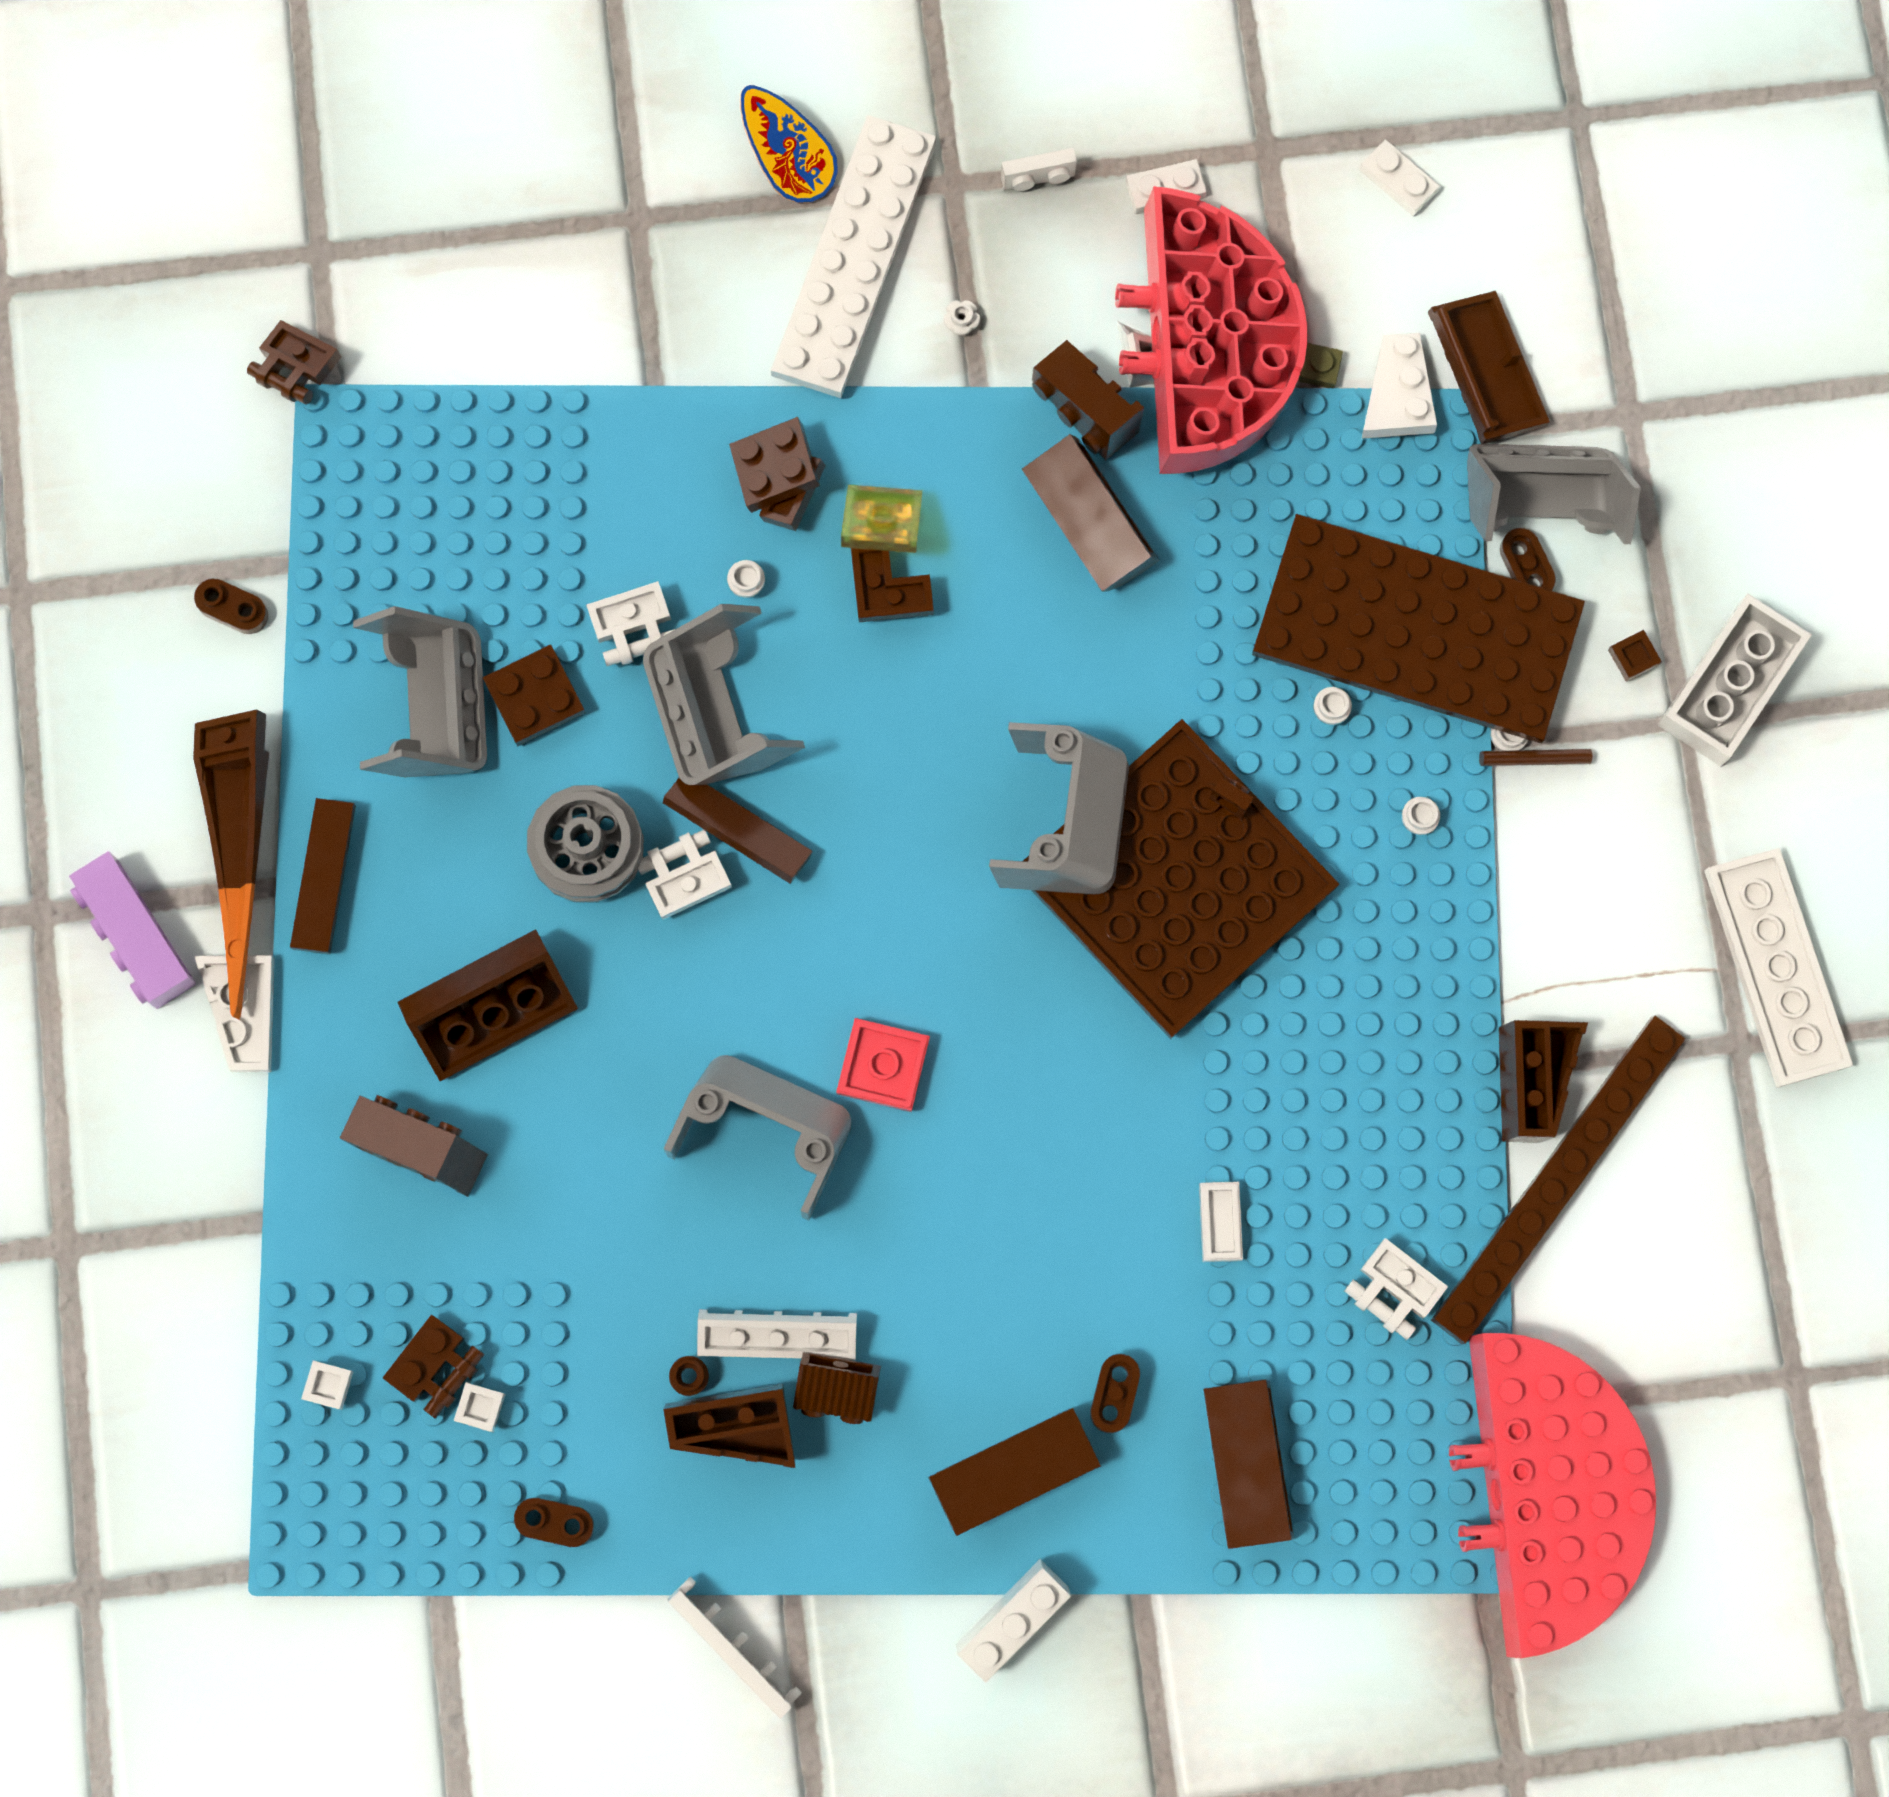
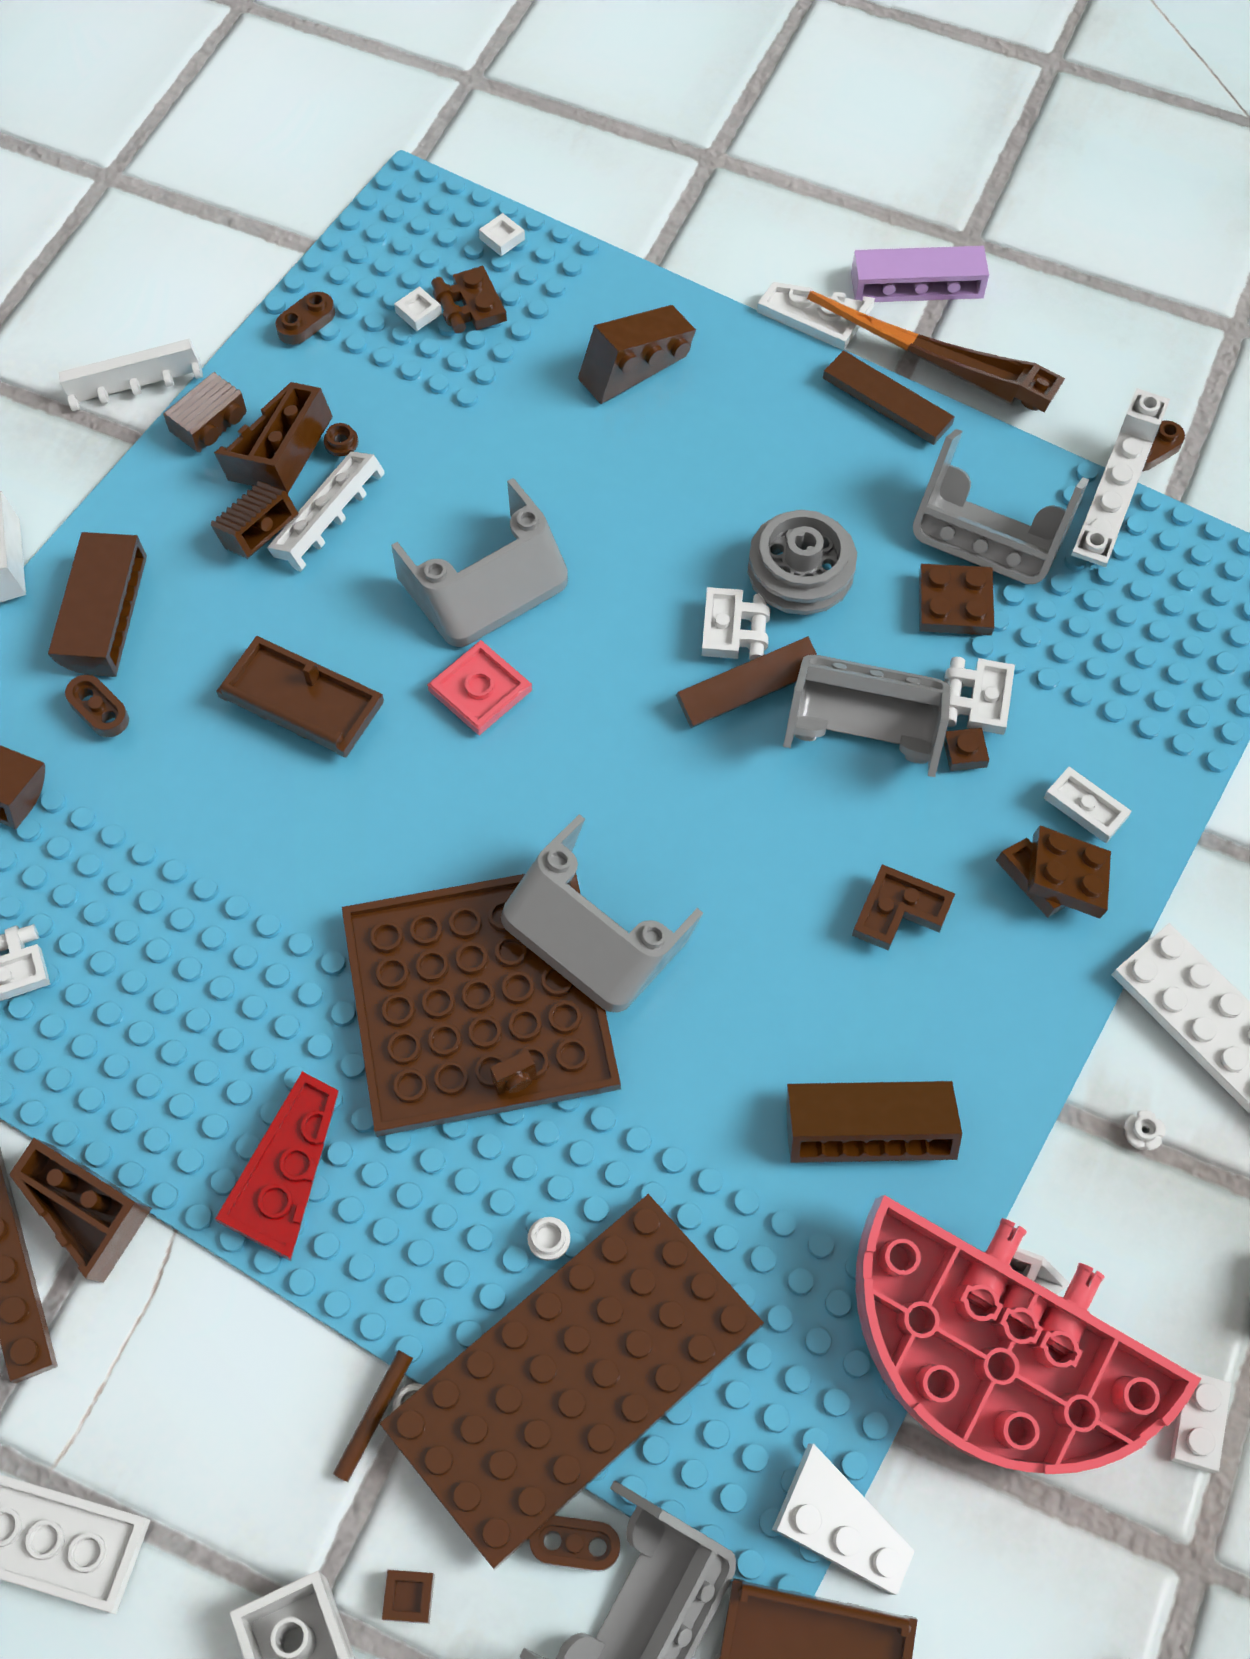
camera: 125 degrees right, 15 degrees down
(319, 609) = (1120, 478): none -> white slope
(487, 1005) = (714, 445): reddish brown slope -> none
(690, 604) = (966, 749): none -> reddish brown plate
(694, 482) = (1087, 804): none -> white plate
(738, 1530) = (205, 412): none -> brick
(746, 578) = (972, 801): white plate -> none
(881, 518) = (967, 931): clear yellow plate -> none
(994, 1215) = (301, 696): none -> reddish brown container
(1086, 400) = (992, 1182): reddish brown wedge -> none
(1220, 1222) = (166, 864): white tile -> none
(1321, 366) = (914, 1462): olive plate -> none
(1420, 815) = (389, 1255): white plate -> none
(1421, 937) = (279, 1177): none -> red wing

